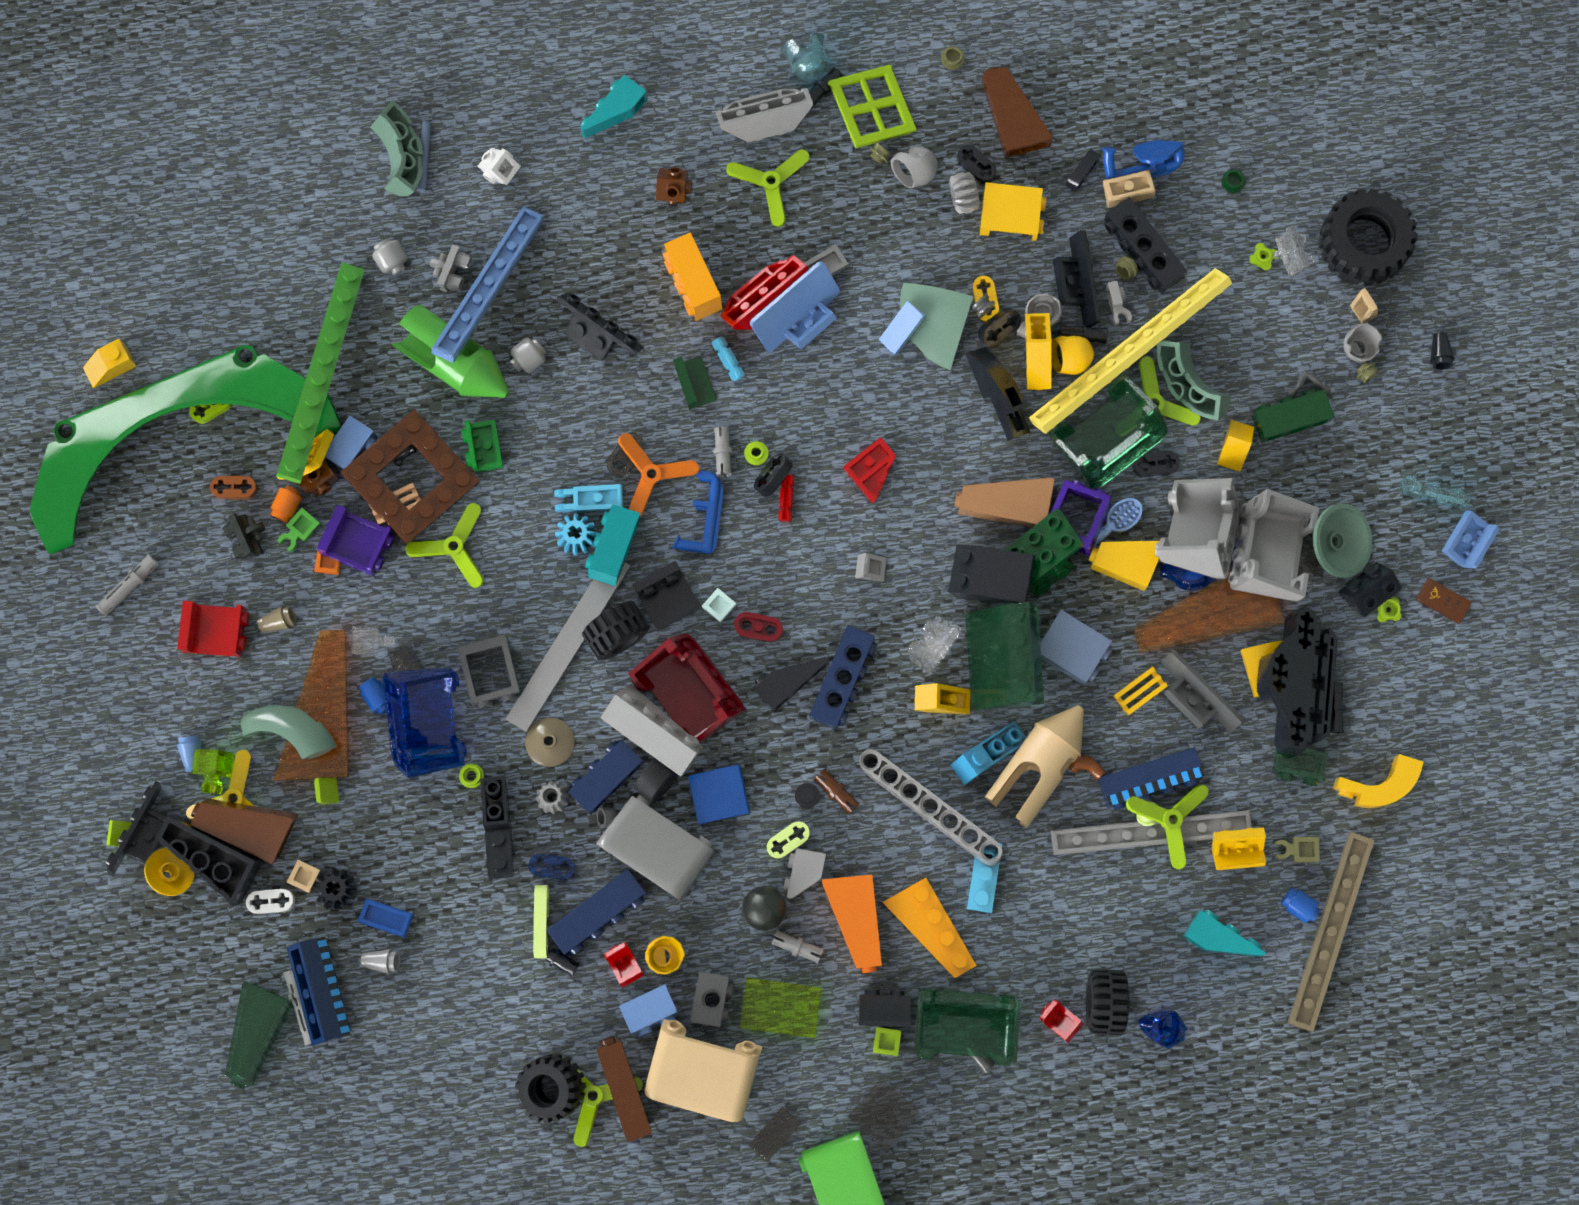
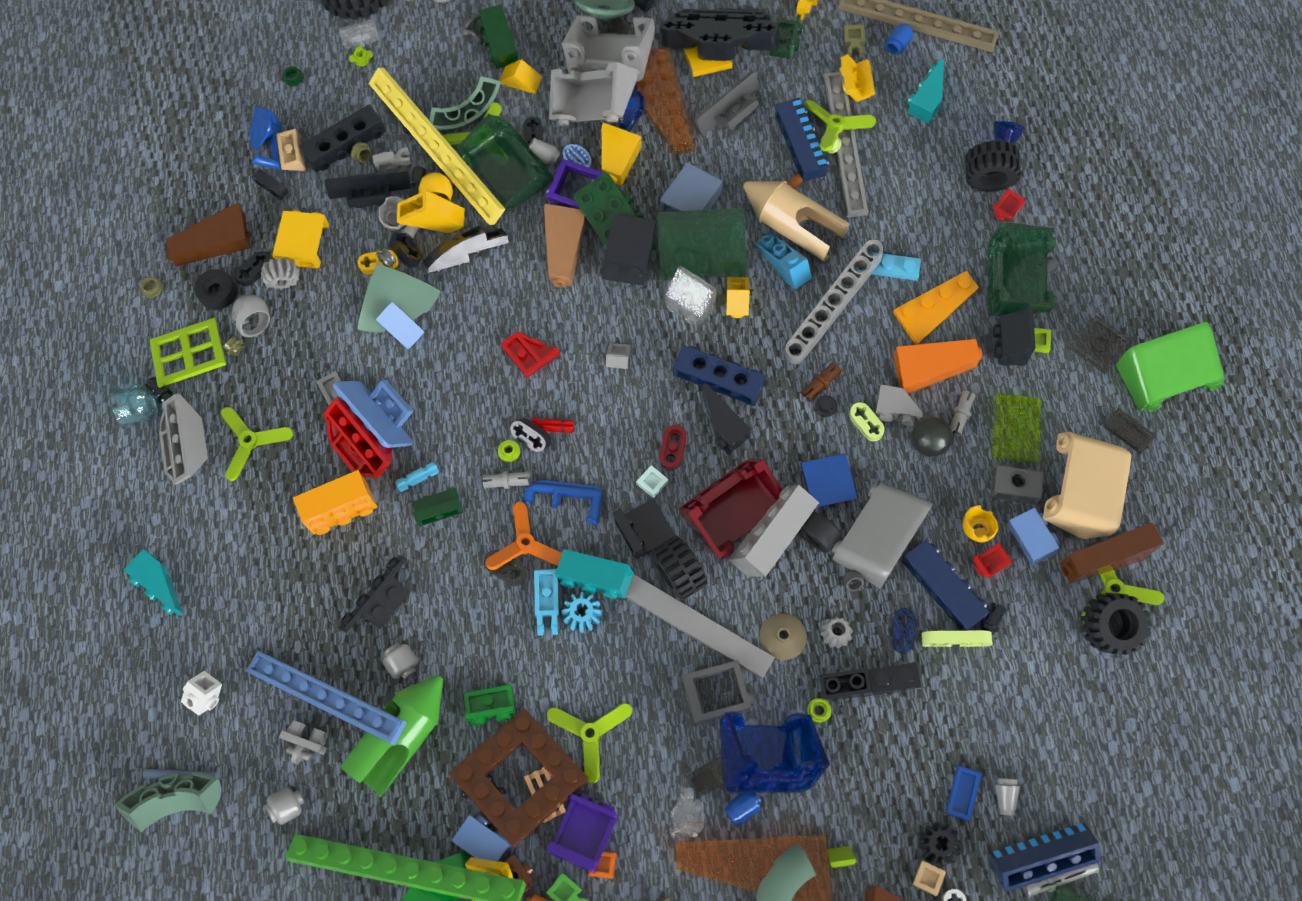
camera: 90 degrees left, 10 degrees down
(605, 776) = (816, 580): dark blue brick -> none
(673, 185) = (242, 525): reddish brown brick -> none
(948, 113) = (215, 278): none -> black tyre
(1128, 477) = (545, 152): none -> light grey cone
(1157, 678) = (717, 137): yellow tile -> none

